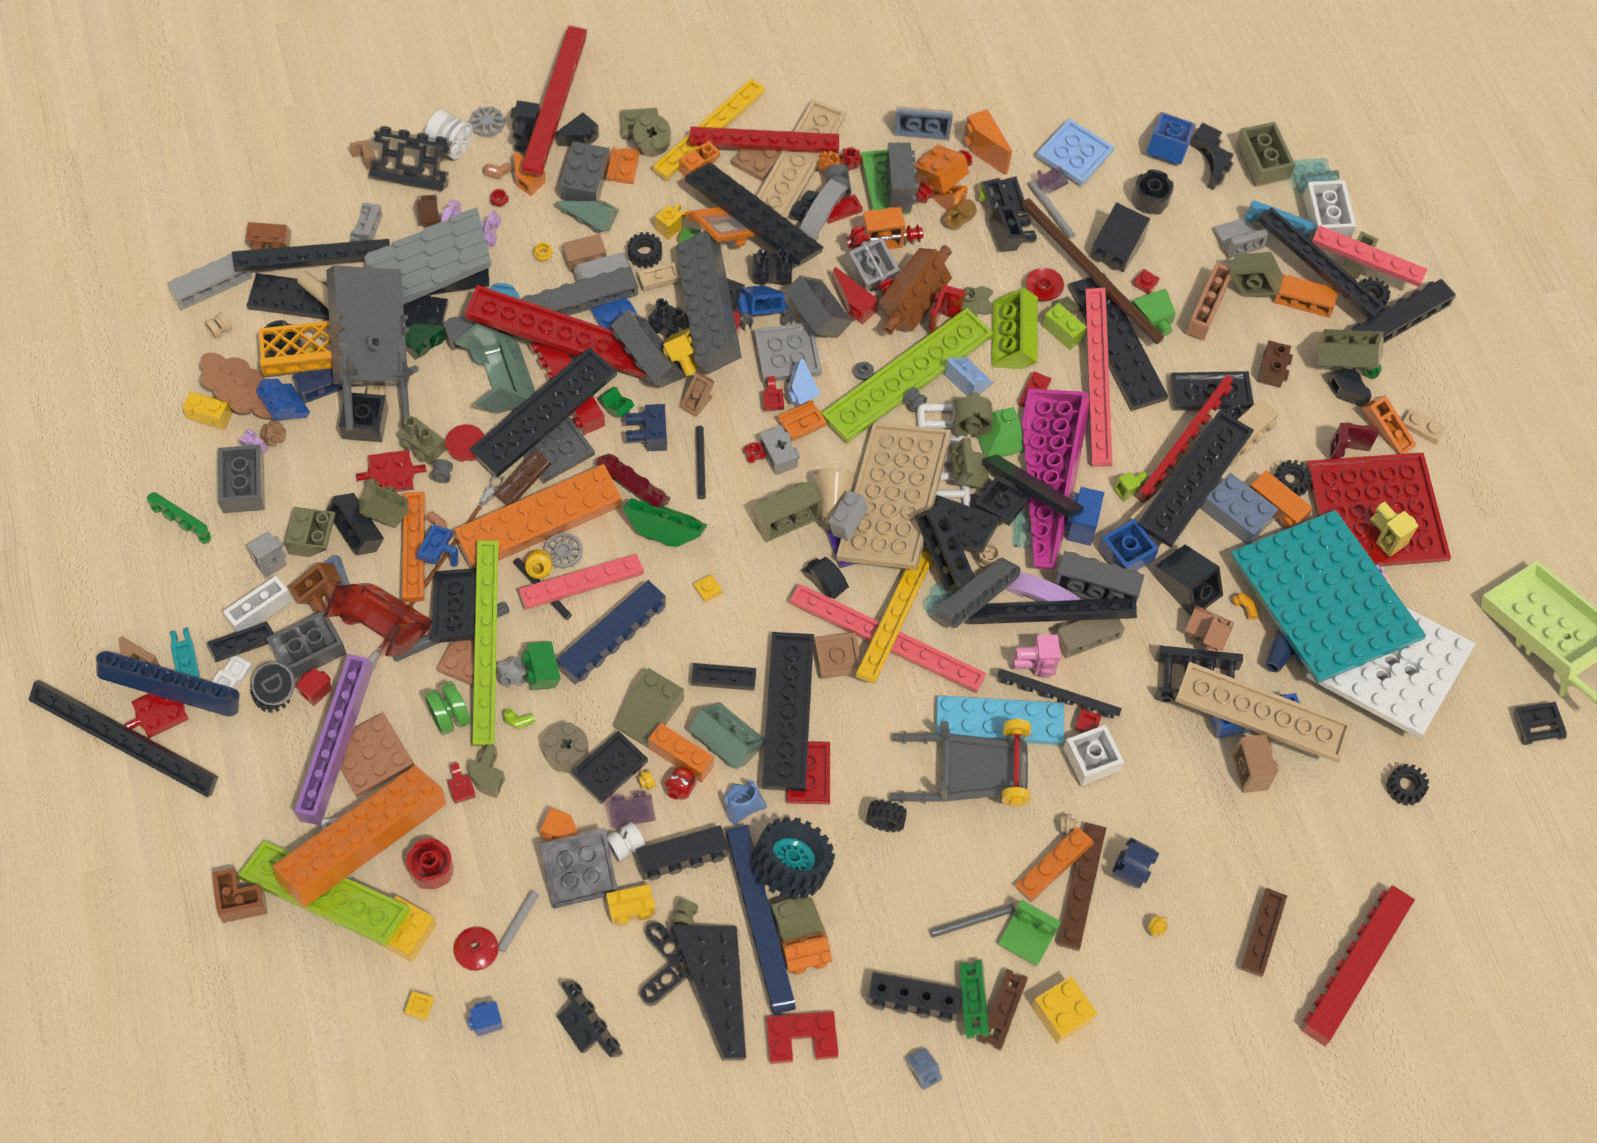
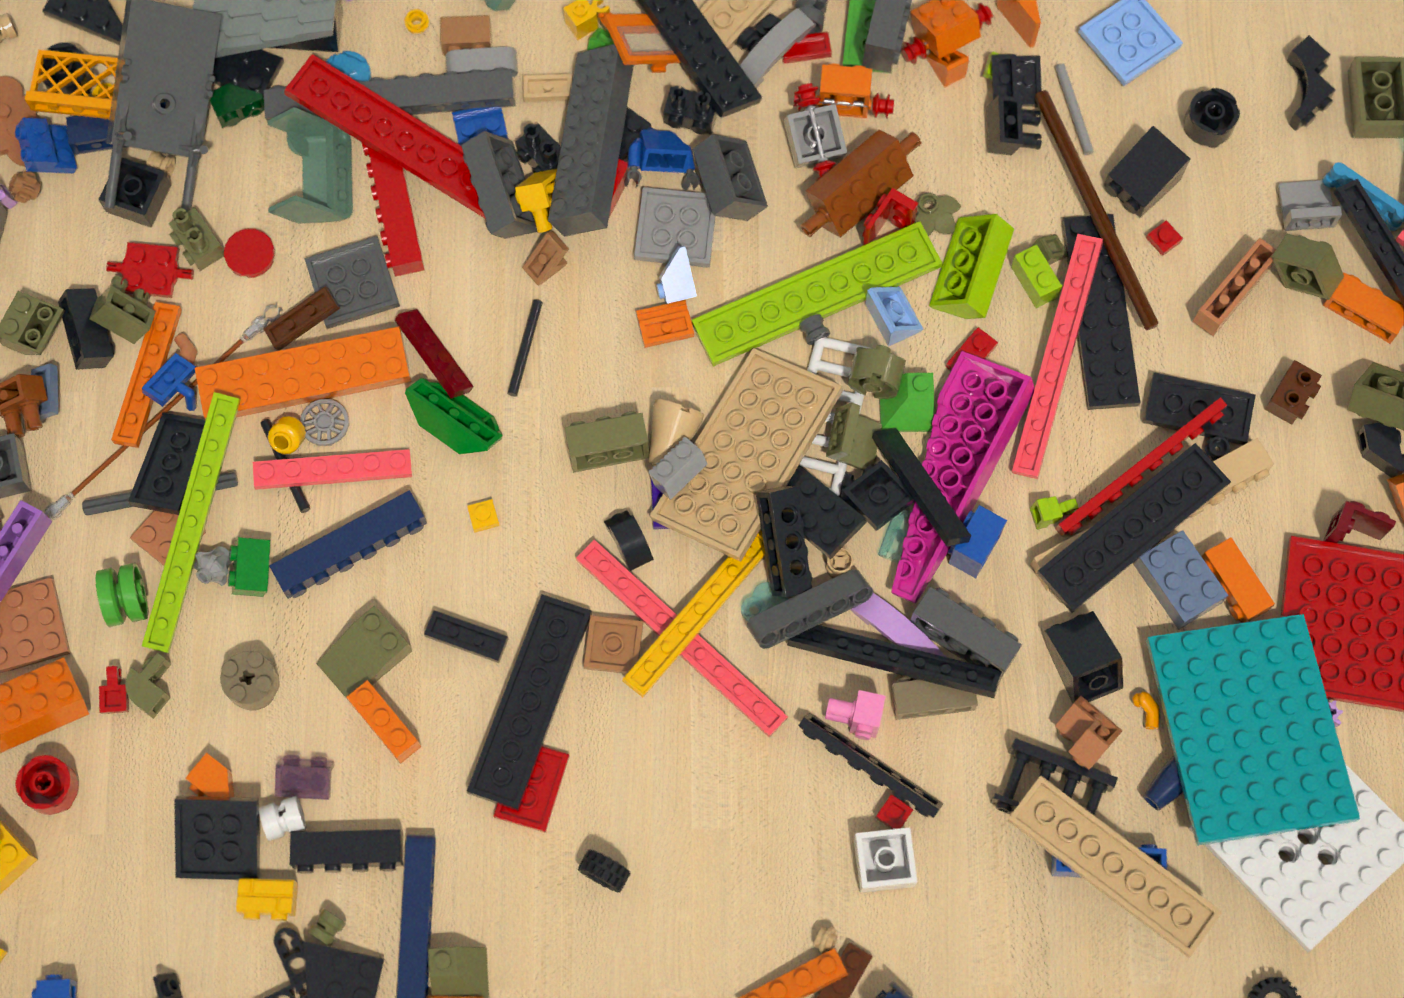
camera: 20 degrees right, 10 degrees up
(381, 613) = (85, 452): clear red windscreen -> none
(441, 471) = (208, 284): dark grey wheel -> none
(477, 958) = (84, 909): red dish -> none
(516, 721) = (204, 628): lime arm -> none
(517, 921) = (130, 882): light grey bar -> none
(543, 412) = (348, 239): black plate -> none
(609, 767) = (295, 717): black plate -> none
(615, 403) = (444, 245): green bracket -> none
(647, 780) = (334, 745): yellow plate -> none
(648, 259) = (538, 35): black tyre -> none
(655, 432) = (482, 288): dark blue brick -> none
(680, 783) = (371, 761): red head -> none
(726, 735) = (446, 712): sand green slope -> none
(743, 801) = (440, 803): medium blue hair -> none
(754, 447) = (597, 344): red plate -> none
(772, 397) = (639, 284): red plate -> none
(779, 450) = (620, 342): light grey brick -> none
(792, 858) = (451, 879): black wheel -> none
(857, 300) = (784, 178): red slope -> none
(864, 375) = (764, 281): dark grey plate -> none
(960, 214) = (953, 91): pearl gold piece -> none
(977, 765) = (737, 838): dark grey piece -> none
(986, 717) = (787, 780): medium azure plate -> none
(1045, 278) = (1032, 202): red dish -> none
(1052, 180) = (1086, 70): bracket -> none
(1128, 546) = (1018, 598): blue brick -> none
(1157, 309) = (1162, 283): bright green torso -> none
(1170, 138) = (1262, 46): blue slope -> none
(1255, 763) = (1085, 926): medium nougat brick -> none
(1298, 471) = (1275, 544): black tyre -> none
(1394, 528) = (1370, 663): light yellow brick -> none

